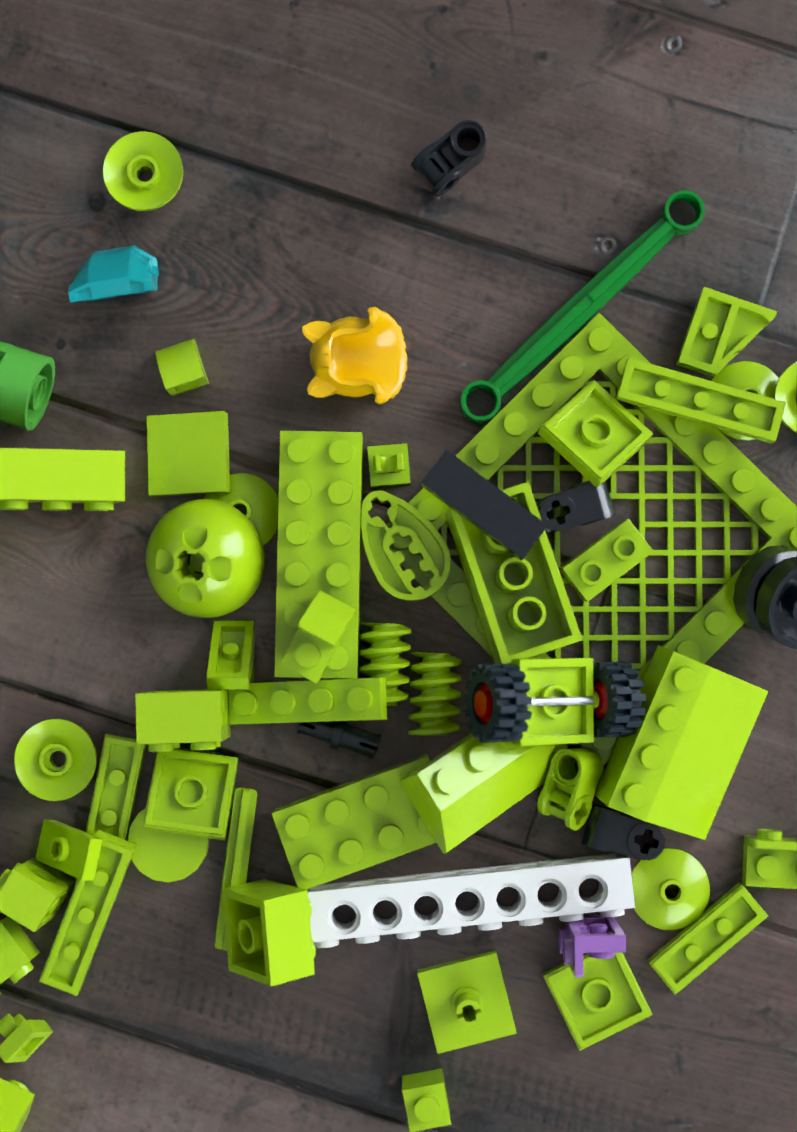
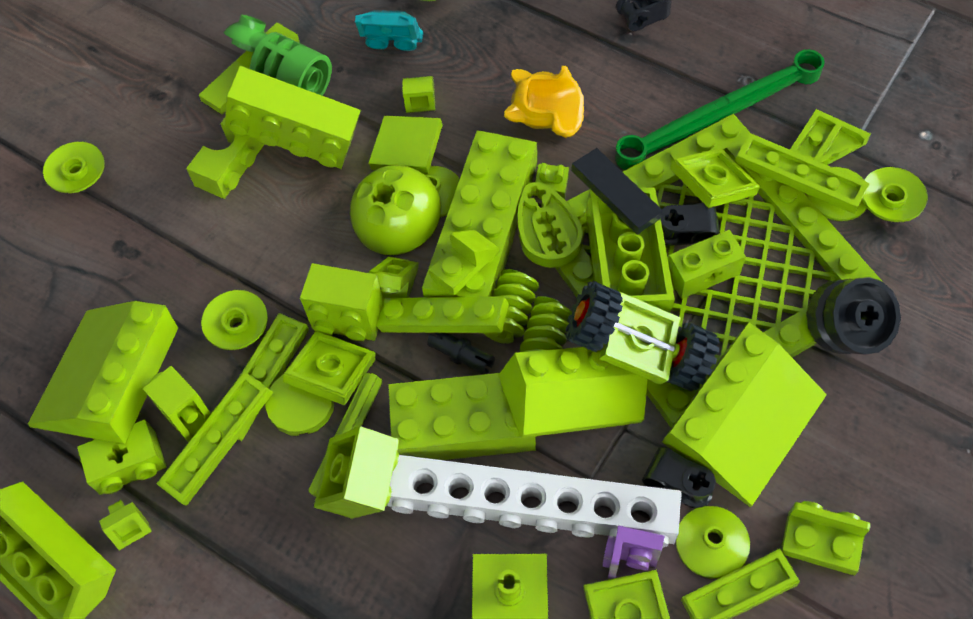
camera: 20 degrees right, 25 degrees down
(69, 849) = (220, 381): lime plate -> none
(571, 793) = (643, 424): lime piece -> none

